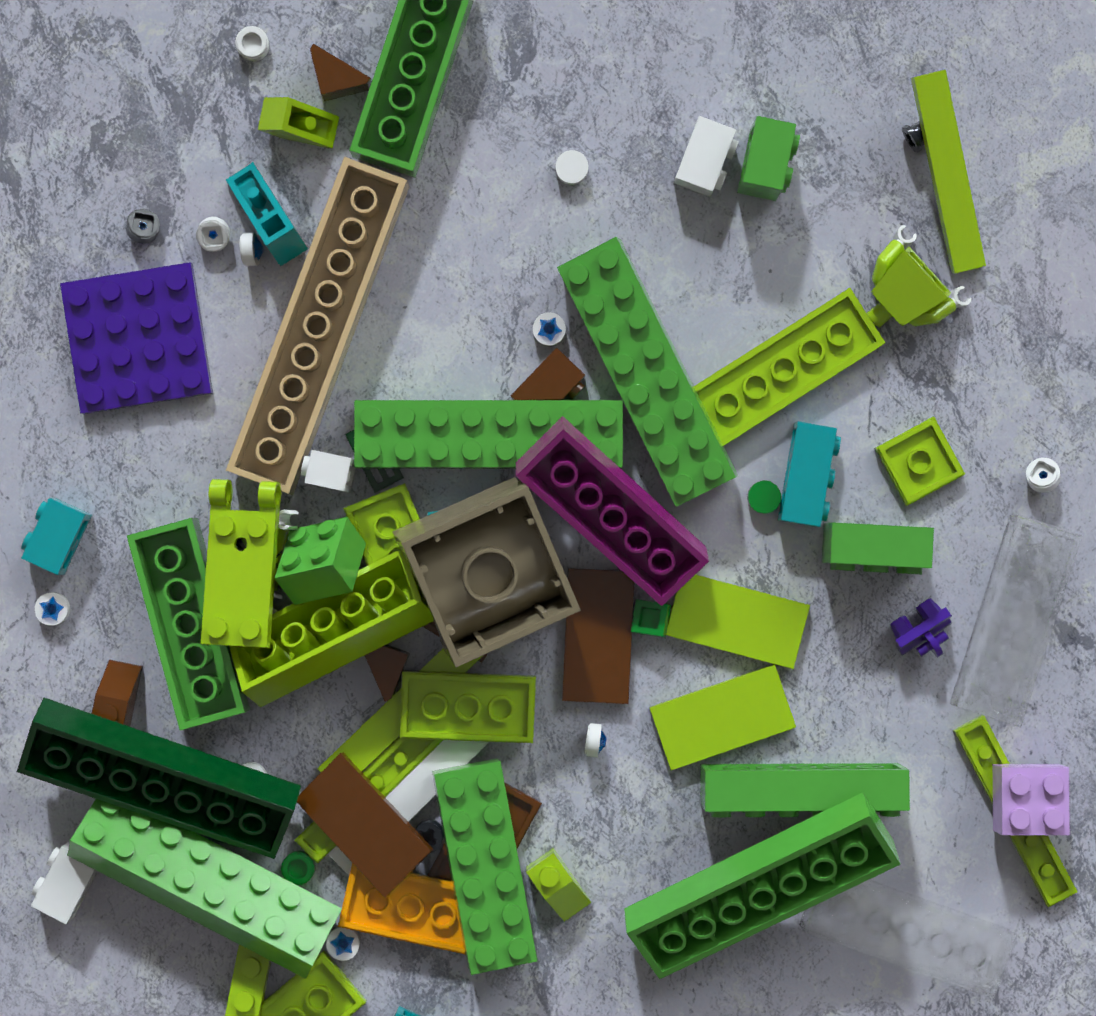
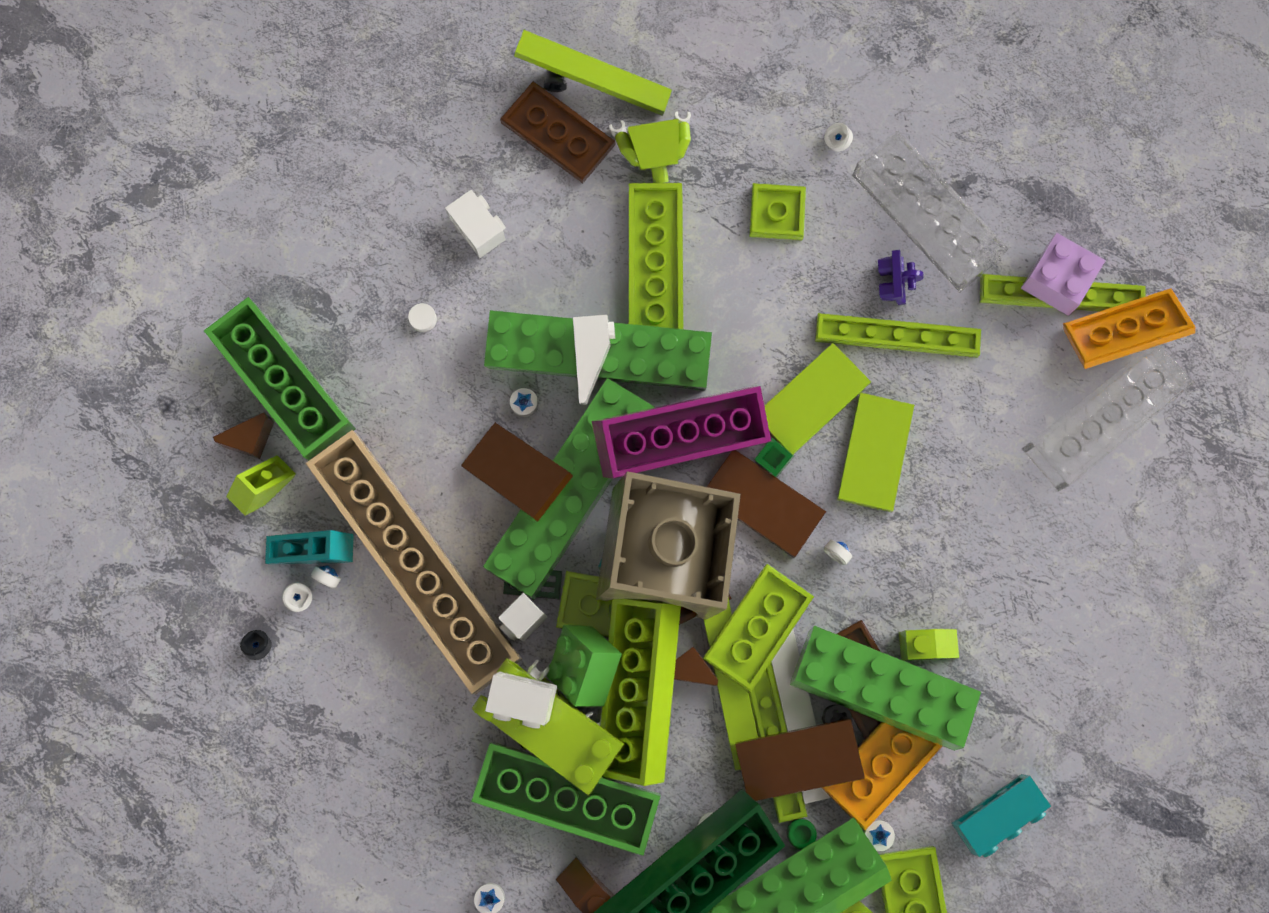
camera: 55 degrees left, 10 degrees down
(55, 535) = (436, 859): teal brick -> none
(136, 338) = (332, 703): dark purple plate -> none
(246, 523) = (520, 699): none -> white brick
(252, 43) = (184, 483): white tile -> none
(470, 370) = (517, 471): none -> reddish brown tile
(552, 380) = (560, 417): reddish brown slope -> none
(640, 366) = (592, 345): none -> white slope
(761, 886) = (1020, 493): bright green brick -> none
(764, 497) = (736, 328): green tile -> none
(766, 158) = (505, 180): bright green brick -> none
(801, 787) = (963, 422): bright green brick -> none
(809, 474) = (740, 288): teal brick -> none
(862, 174) = (557, 132): none -> reddish brown tile
(862, 666) = (898, 335): none -> lime tile
(877, 547) = (821, 270): bright green brick -> none
(1014, 899) = (1128, 328): none -> light orange tile

